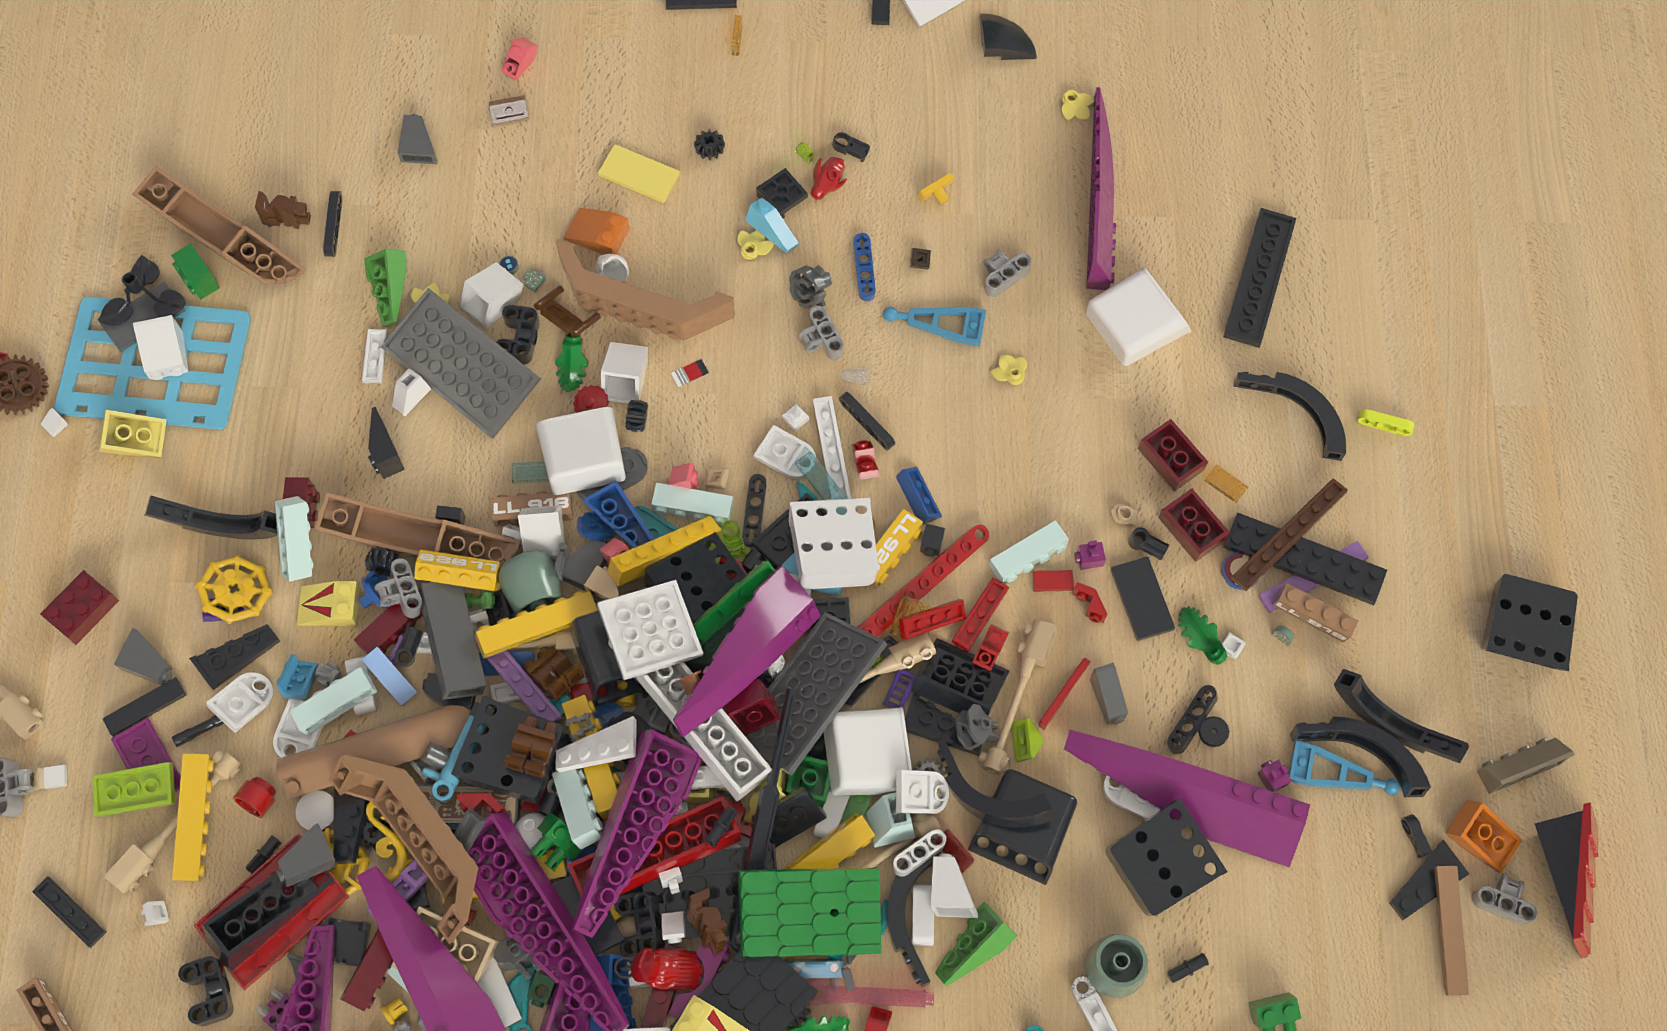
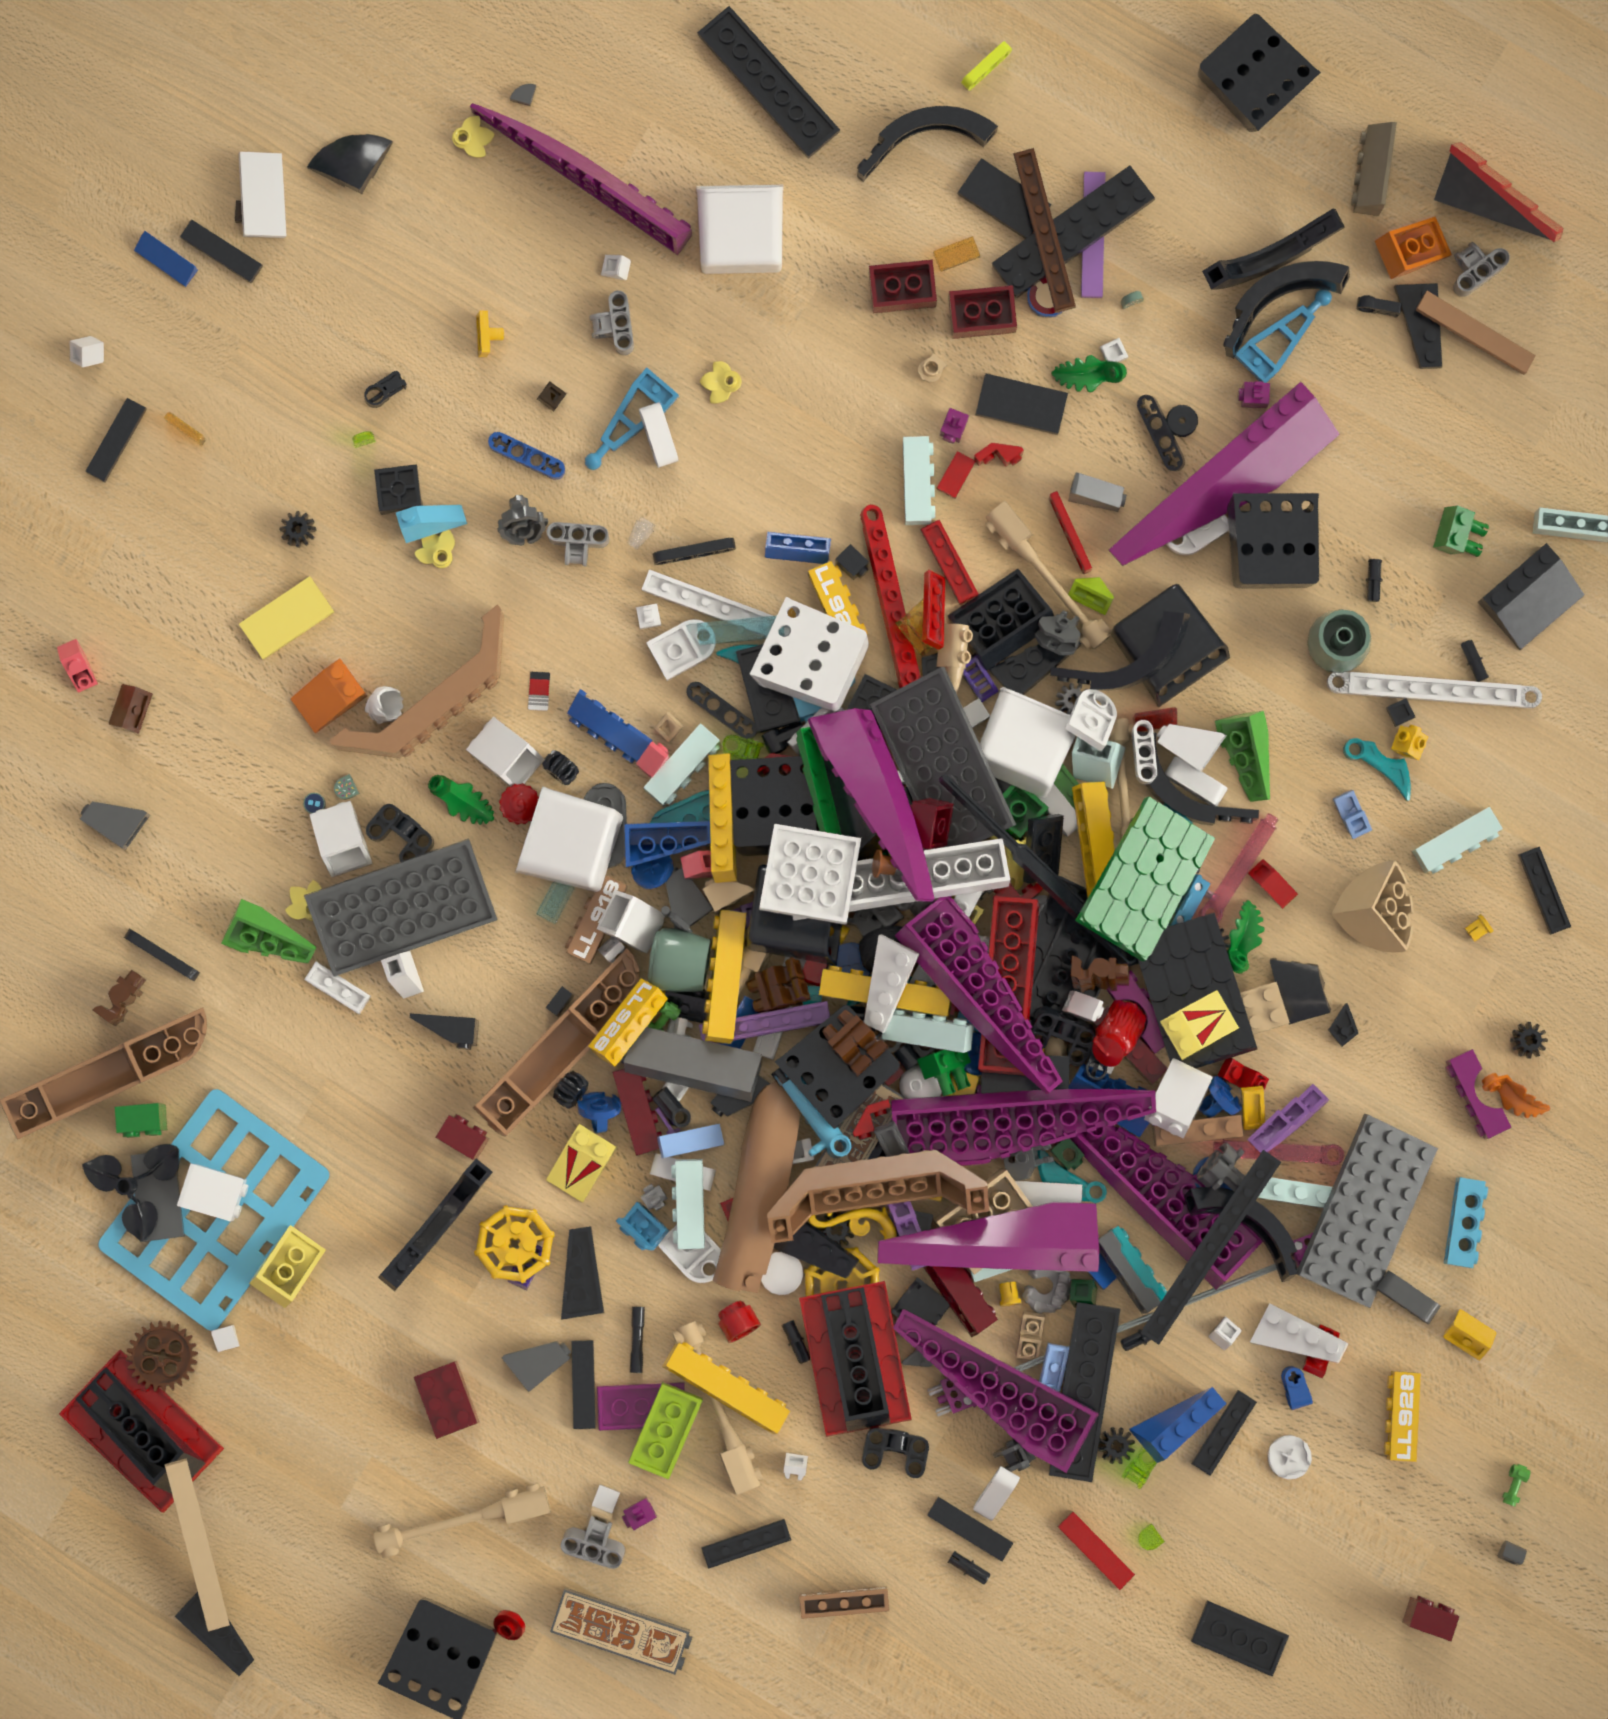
camera: 60 degrees left, 15 degrees up
(53, 809) = (639, 1514): none -> magenta brick
(241, 701) = (634, 1291): white plate -> none
(294, 538) = (504, 1160): light aqua brick -> none
(306, 858) = (832, 1300): dark grey slope -> none
(392, 593) = (615, 1094): light grey piece -> none
(435, 755) = (802, 1135): dark grey brick -> none
(561, 316) = (406, 782): reddish brown plate -> none
(583, 730) = (855, 979): dark grey piece -> none
(671, 879) = (1040, 985): white tile -> none
(690, 430) = (608, 727): none -> blue wedge
(720, 826) = (1024, 913): black axle -> none
(827, 177) = (408, 434): red animal -> none
(848, 979) = (1217, 880): dark grey tile -> none
(865, 459) = (733, 576): red slope -> none
(871, 701) = (976, 712): none -> white tile
(939, 345) = (658, 434): none -> white beam
(990, 647) = (987, 572): red slope -> none
(1048, 251) = (616, 267): none -> white slope
(1131, 121) = (524, 94): none -> dark grey tile
(1150, 544) = (975, 364): black piece -> none
(1291, 487) = (998, 197): none -> black tile
(1315, 612) = (1130, 258): medium nougat brick -> none

